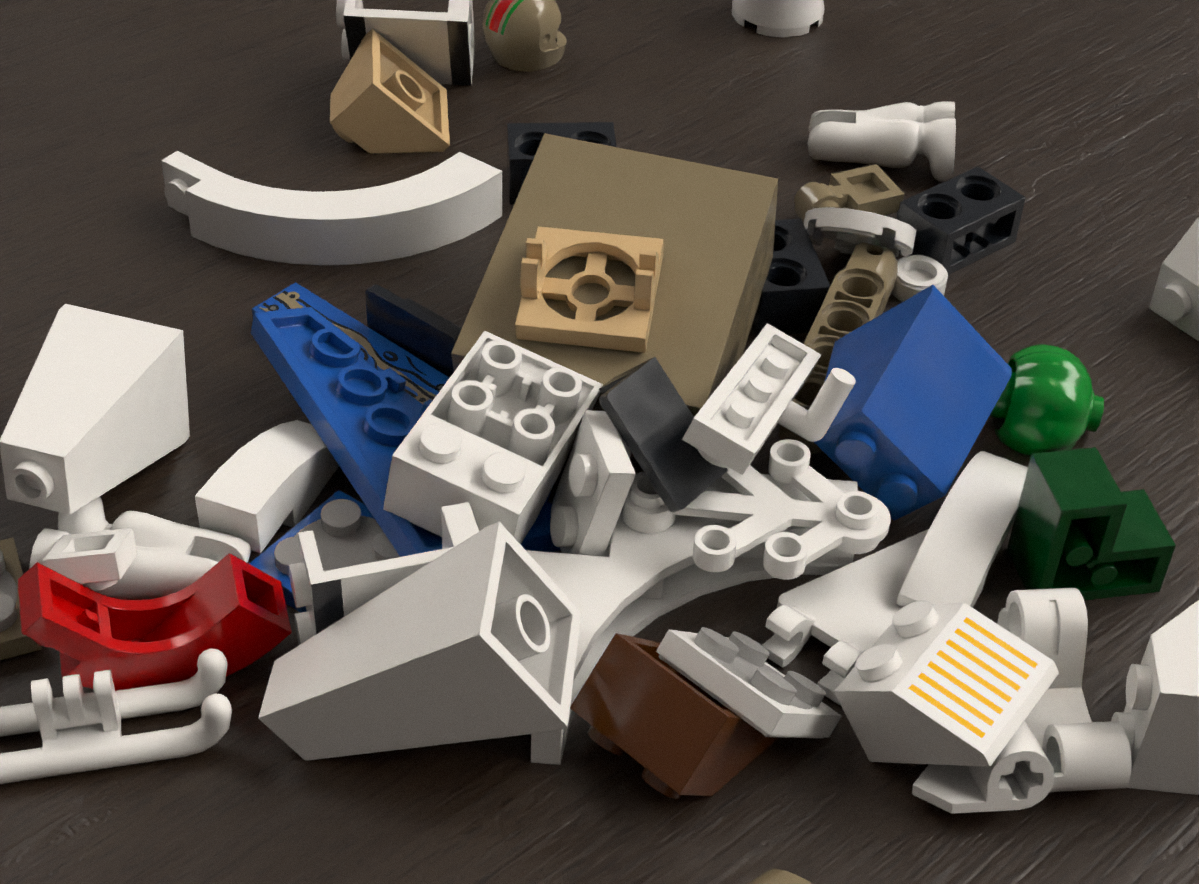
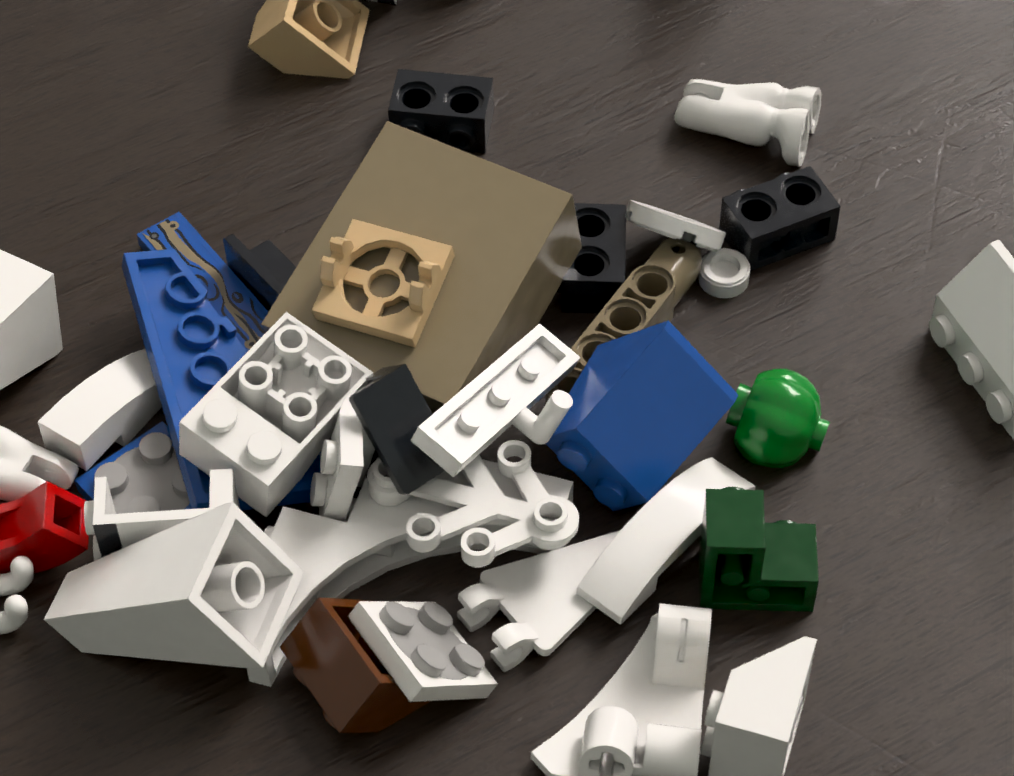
camera: 15 degrees right, 10 degrees up
(335, 225) = (234, 158): white arch -> none
(856, 189) = (701, 173): dark tan plate -> none
(943, 687) = (571, 677): white slope -> none

